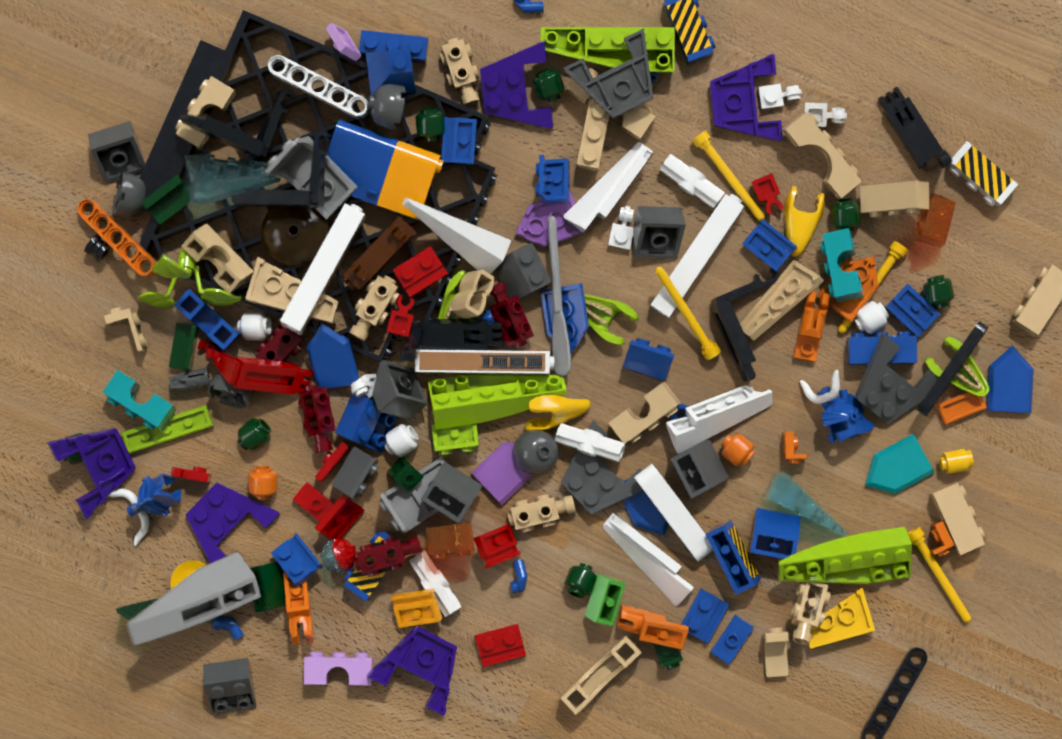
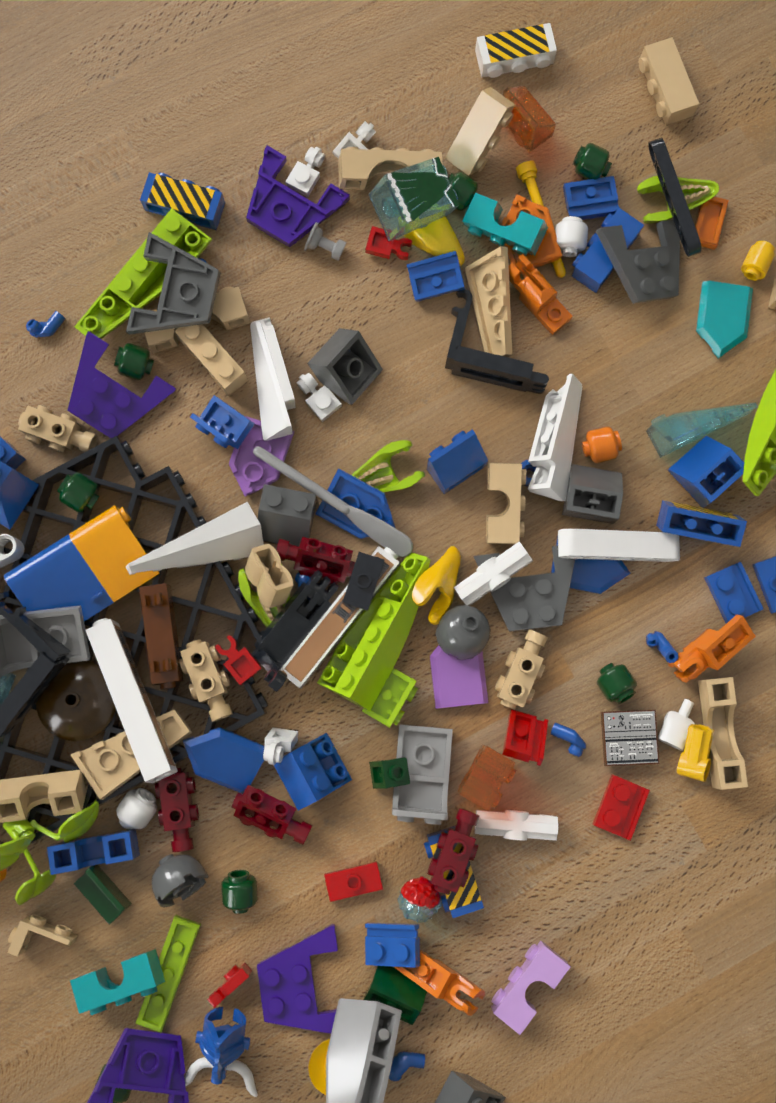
camera: 50 degrees left, 5 degrees down
(190, 380) = (138, 913): dark grey hinge -> none
(258, 373) = (182, 842): red hinge -> none
(262, 482) = (291, 919): orange head -> none
(331, 460) = (322, 835): red plate -> none
(339, 518) = (383, 870): red plate -> none
(355, 472) = (351, 821): dark grey slope -> none
(387, 105) = (25, 518): dark grey cylinder -> none
(398, 391) = (305, 718): dark grey slope -> none
(401, 440) = (354, 751): white head -> none
(416, 608) = (527, 862): light orange plate -> none
(420, 271) = (209, 609): red plate -> none
(425, 657) = (579, 891): dark purple wing -> none
(451, 492) = (442, 742): dark grey slope -> none
(459, 141) = (116, 478): blue plate -> none
(517, 359) = (363, 581): none -> black plate
(550, 616) = (629, 737): none -> light grey tile
(568, 669) = (695, 758): none -> yellow piece
(583, 643) = (676, 726): none -> white piece
(605, 599) = (653, 673): bright green brick -> none
(629, 597) = (664, 647): none -> blue arm
(650, 559) = (644, 602): white wedge -> none
(668, 656) = (751, 656): dark green bracket -> none
(691, 181) = (323, 301): white piece -> none
(699, 252) = (394, 347): white brick -> none
(703, 142) = (296, 266): yellow piece -> none
(708, 348) = (489, 401): yellow piece -> none
(733, 142) = (316, 239): none -> light grey piece
(790, 444) = (633, 397): orange bracket -> none
(809, 190) = (413, 197): none -> slope
(842, 414) = (639, 324): blue helmet -> none
(914, 132) = (436, 80): black hinge -> none
(1010, 383) = (721, 162): blue tile -> none

